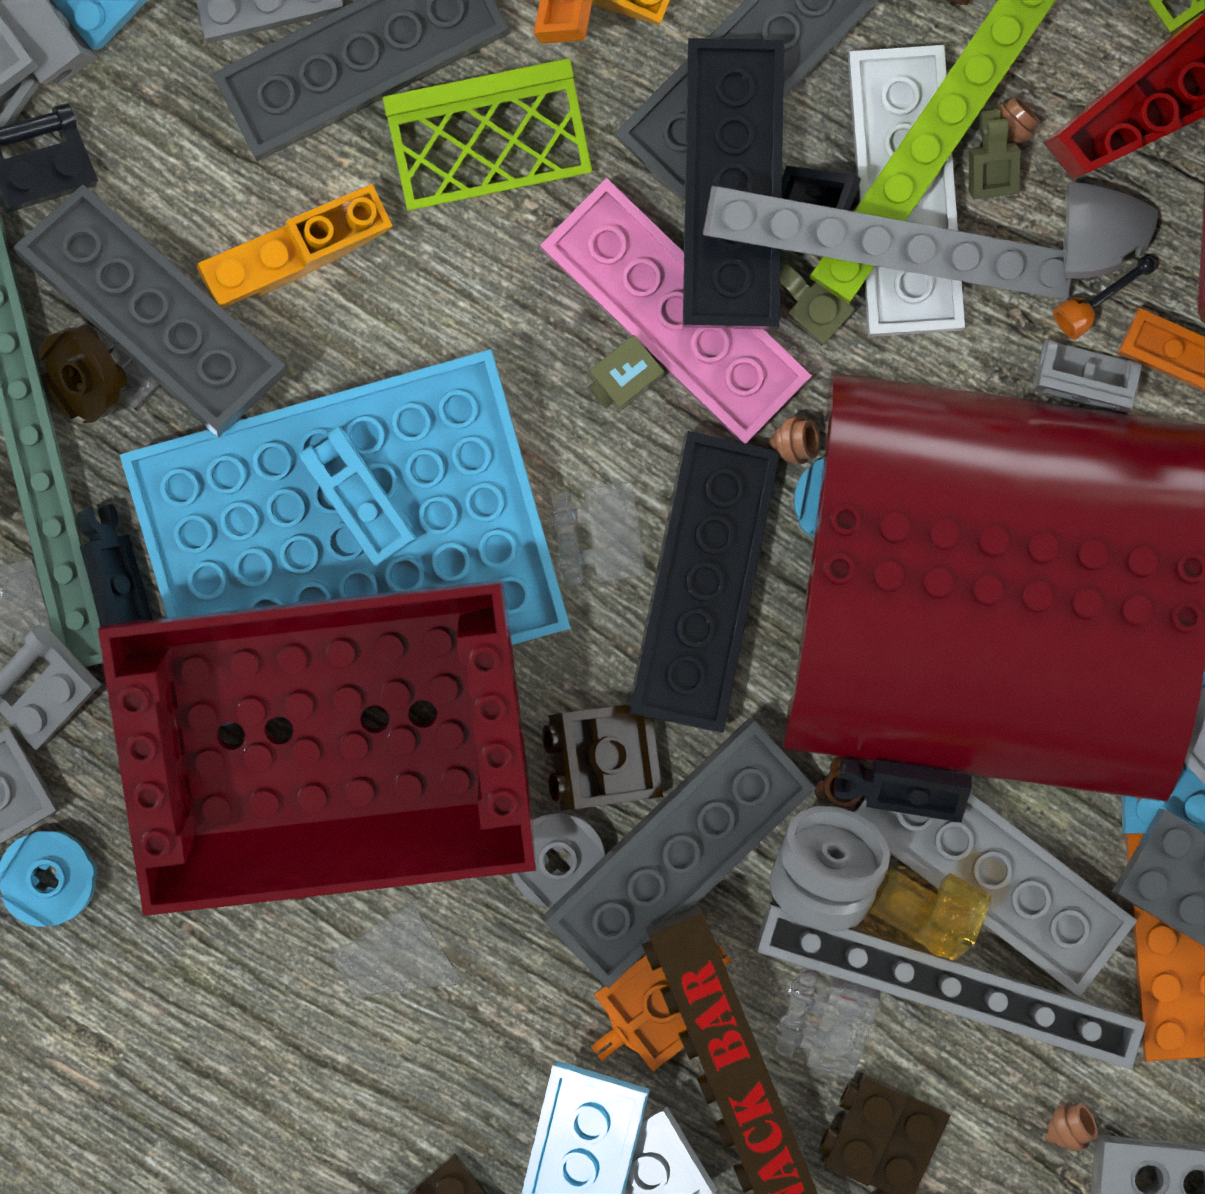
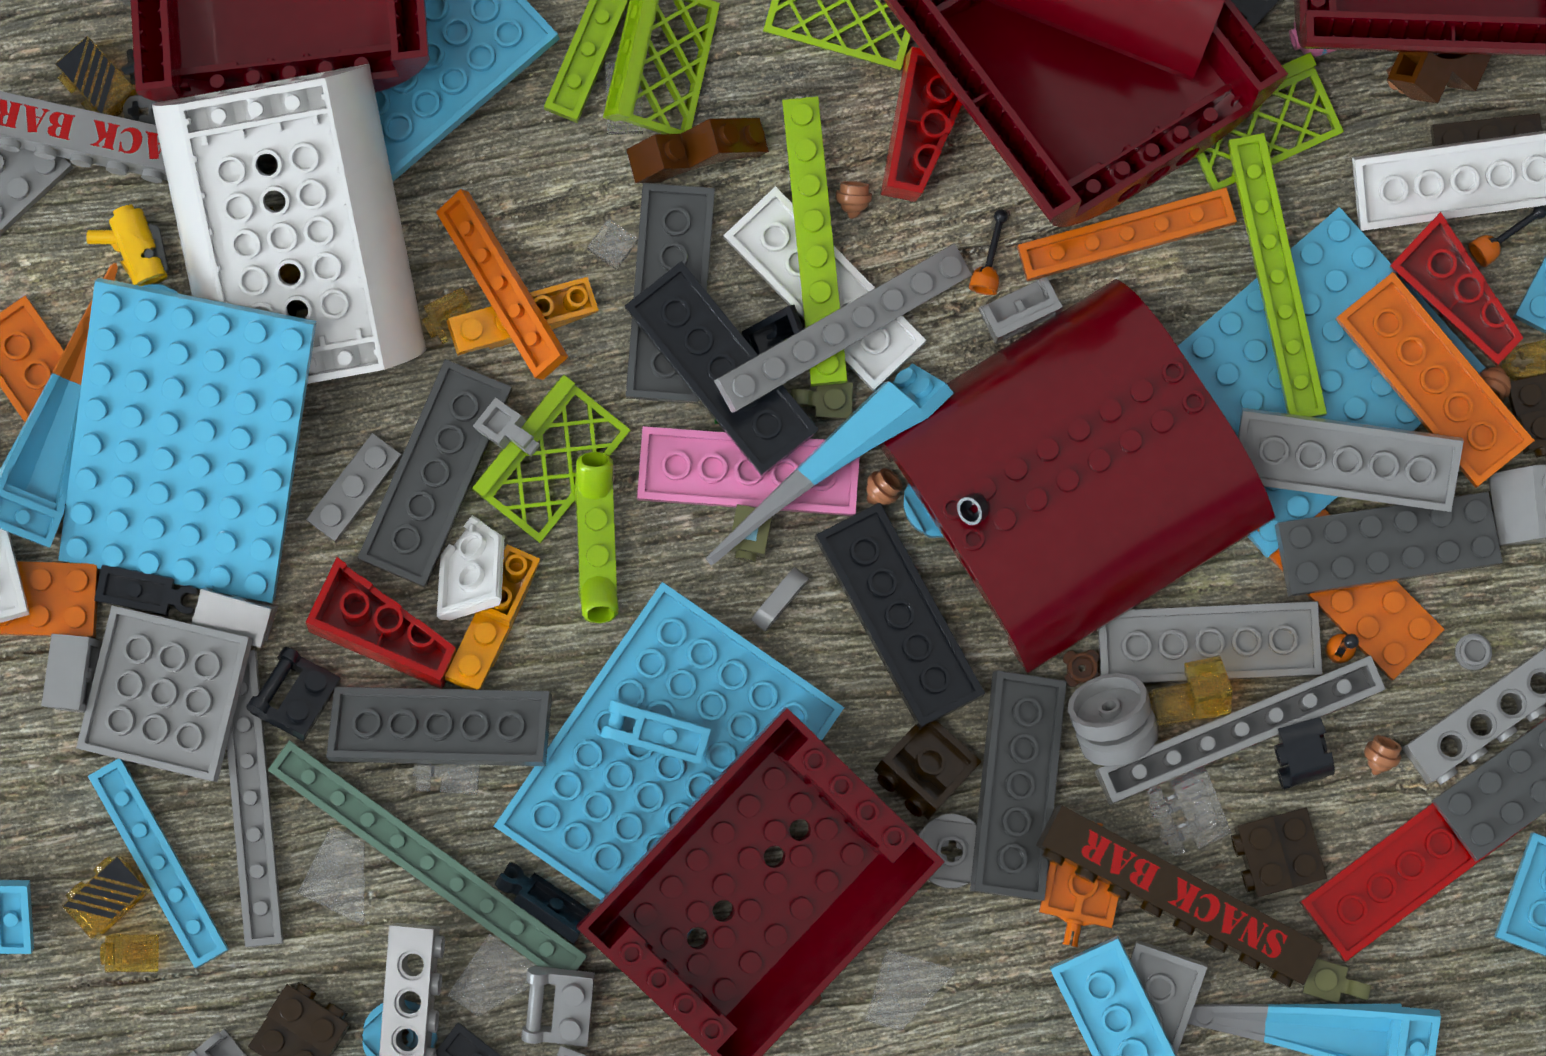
camera: 40 degrees left, 5 degrees down
(81, 352) = (430, 783): dark brown plate -> none
(169, 148) = (376, 626): none -> red wedge
(311, 181) = (471, 572): none -> white tile
(465, 59) = (504, 425): none -> light grey plate
(465, 250) = (596, 537): none -> lime plate
(598, 466) = (780, 599): none -> light grey beam
(613, 534) = (822, 631): clear plate -> none
(853, 367) = (881, 416): none -> medium azure plate
(865, 527) = (969, 501): none -> black hinge
(905, 788) = (1118, 636): black plate -> none
(992, 1063) = (1303, 754): none -> black cylinder
(995, 165) = (864, 229): olive plate -> none
(1103, 229) = (958, 216): light grey brick -> none
(1120, 979) = (1343, 647): none -> orange hinge

